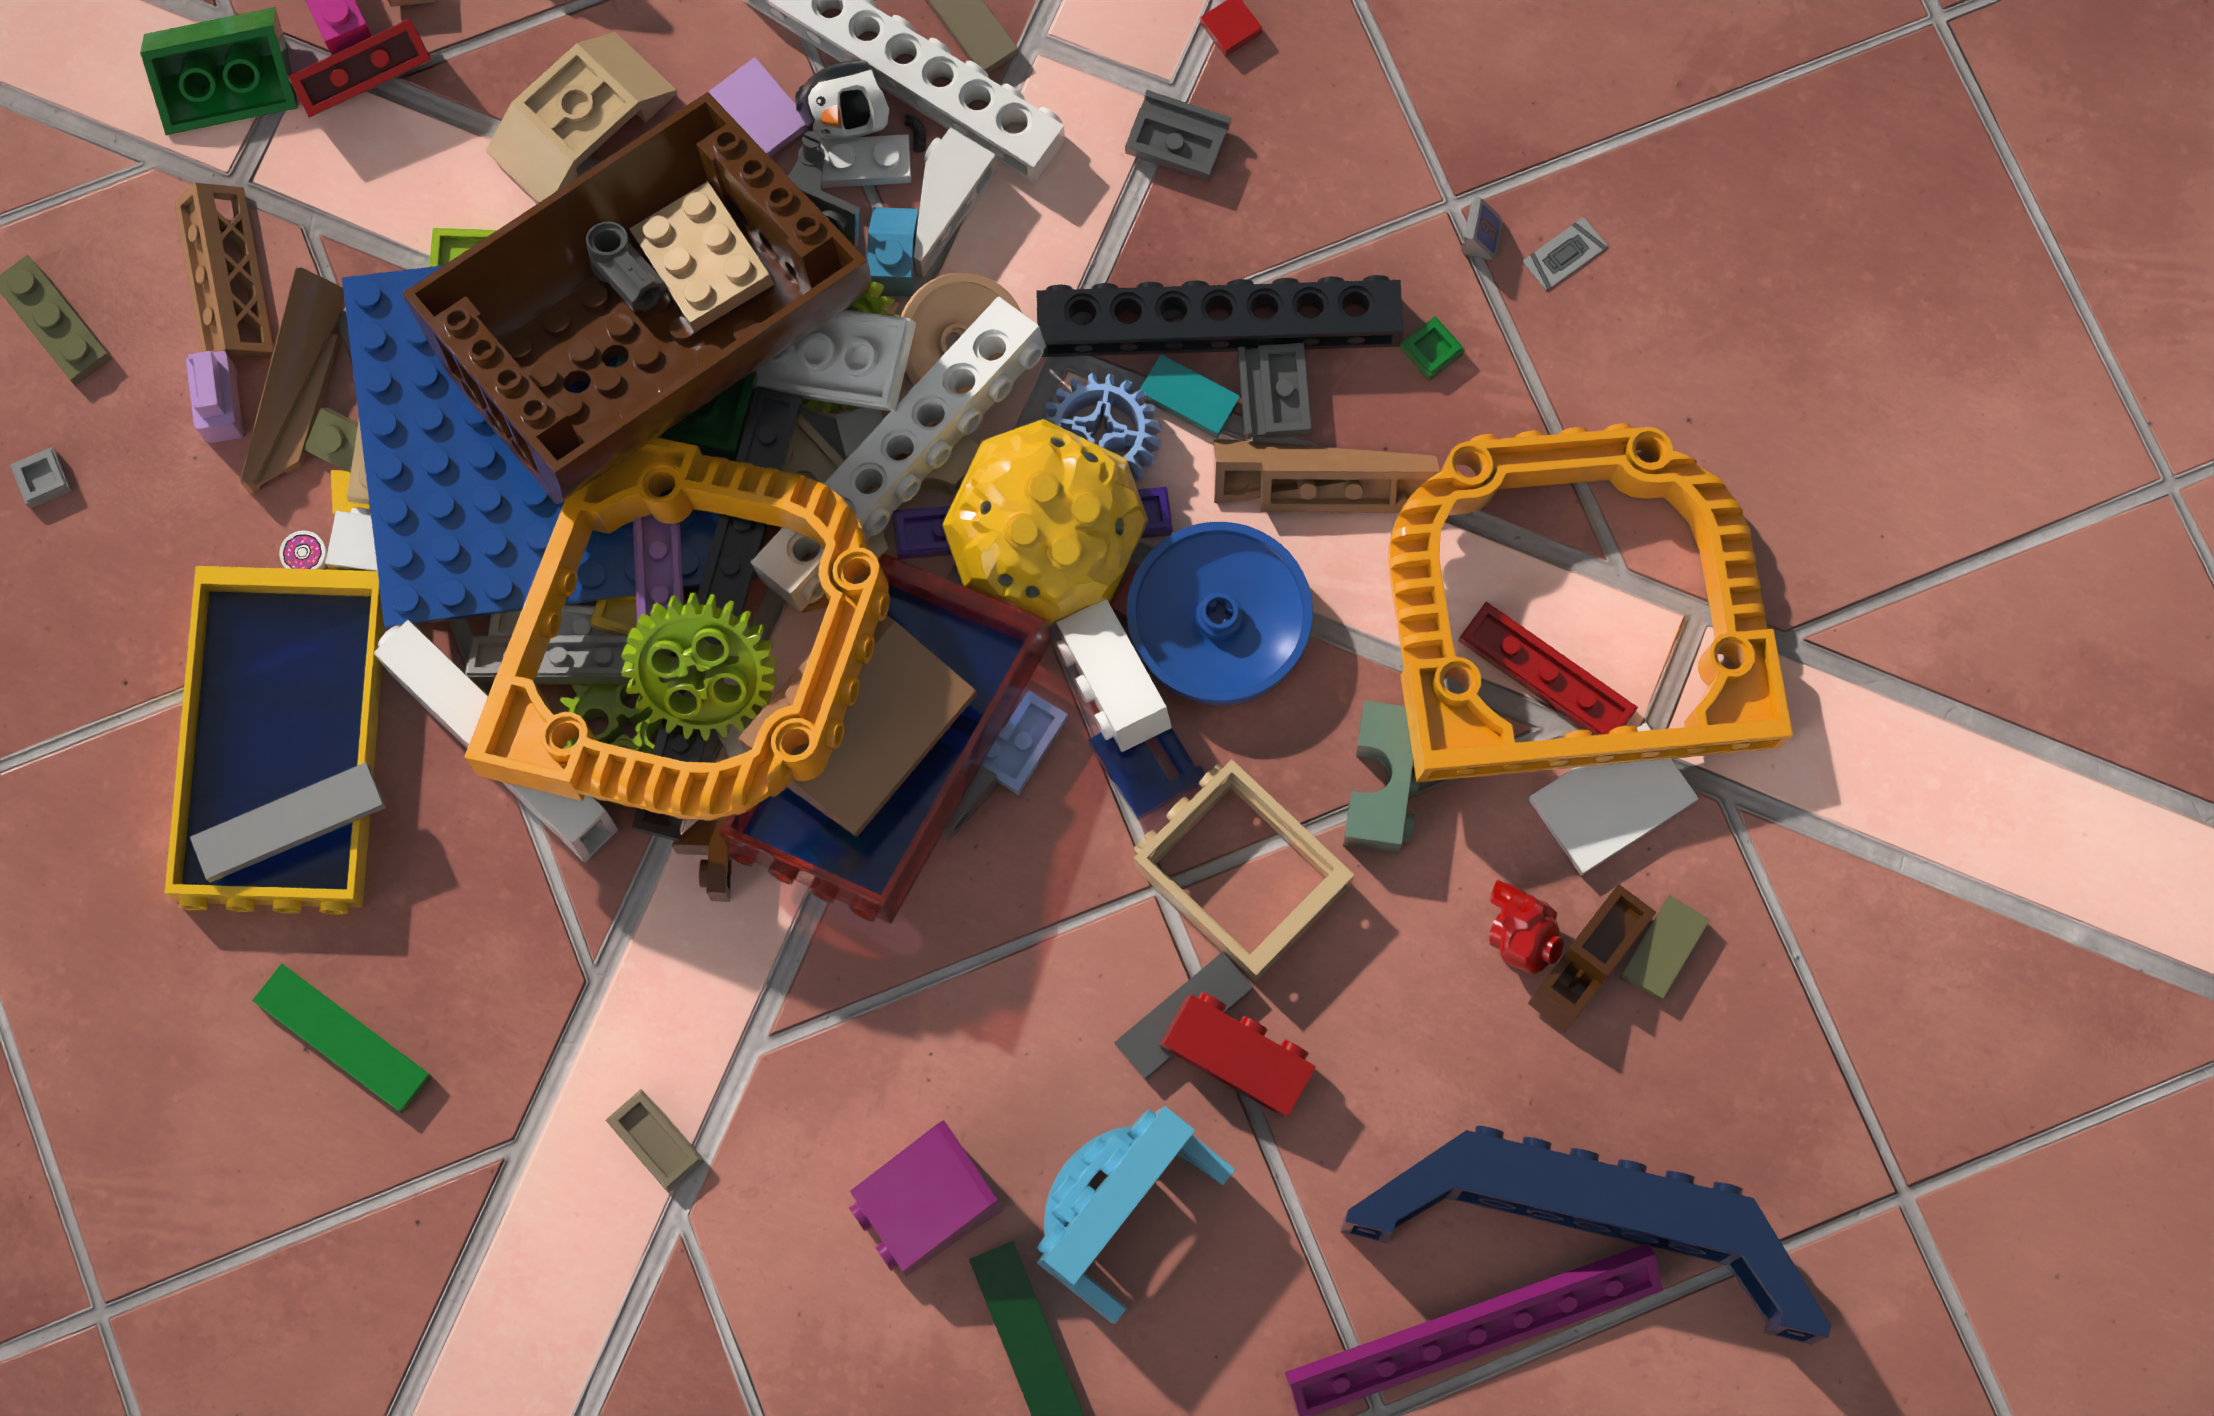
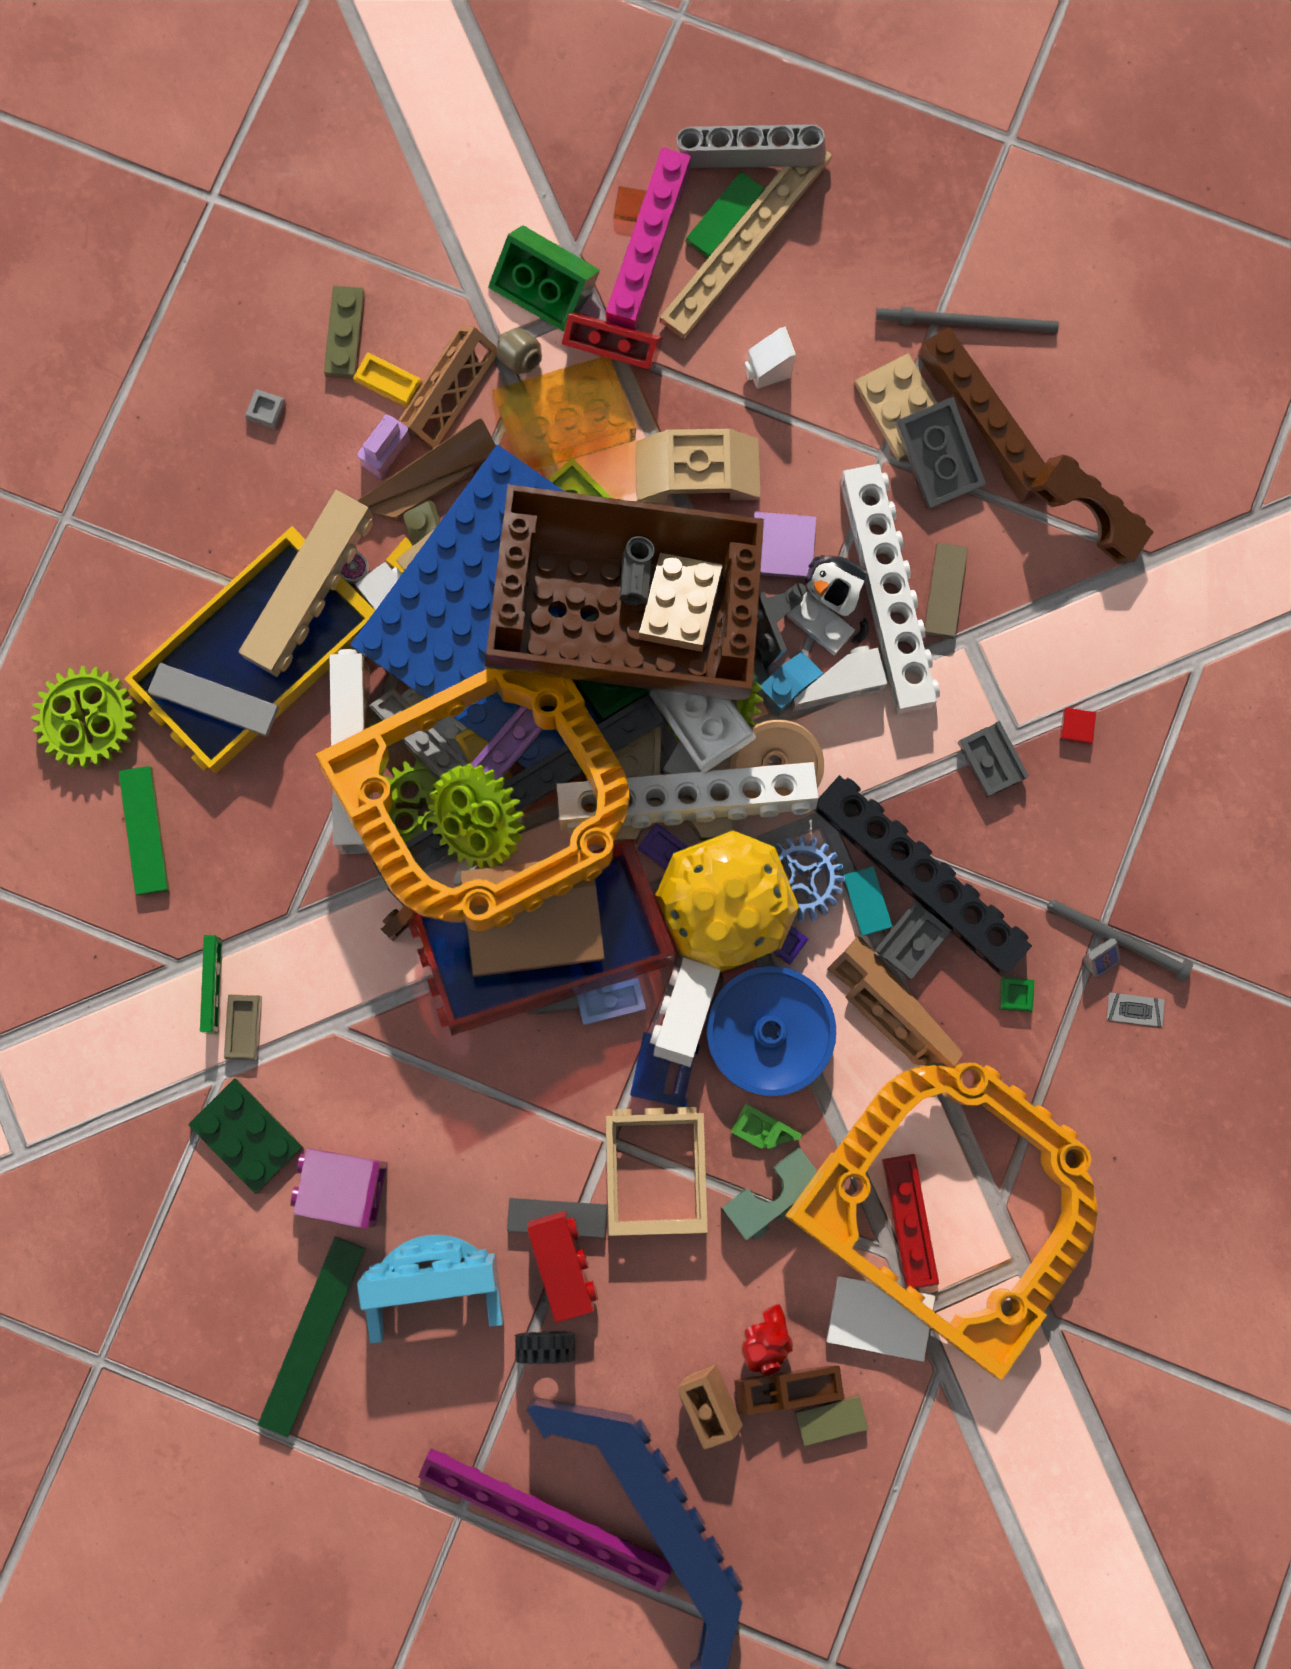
camera: 40 degrees right, 5 degrees up
(135, 1015) = (57, 726): none -> lime gear
(149, 327) = (387, 379): none -> yellow tile
(267, 168) = (519, 351): none -> dark tan head
(274, 606) = (306, 583): none -> tan brick
(382, 187) = (565, 414): none -> clear yellow slope
(576, 1125) = (211, 984): none -> green tile
(769, 1249) = (245, 1135): none -> dark green plate
(1302, 1152) = (545, 1347): none -> black tyre
(1307, 726) = (761, 1129): none -> bright green slope
(1529, 1049) = (709, 1407): none -> medium nougat brick
(1570, 170) = (1181, 970): none -> dark grey bar

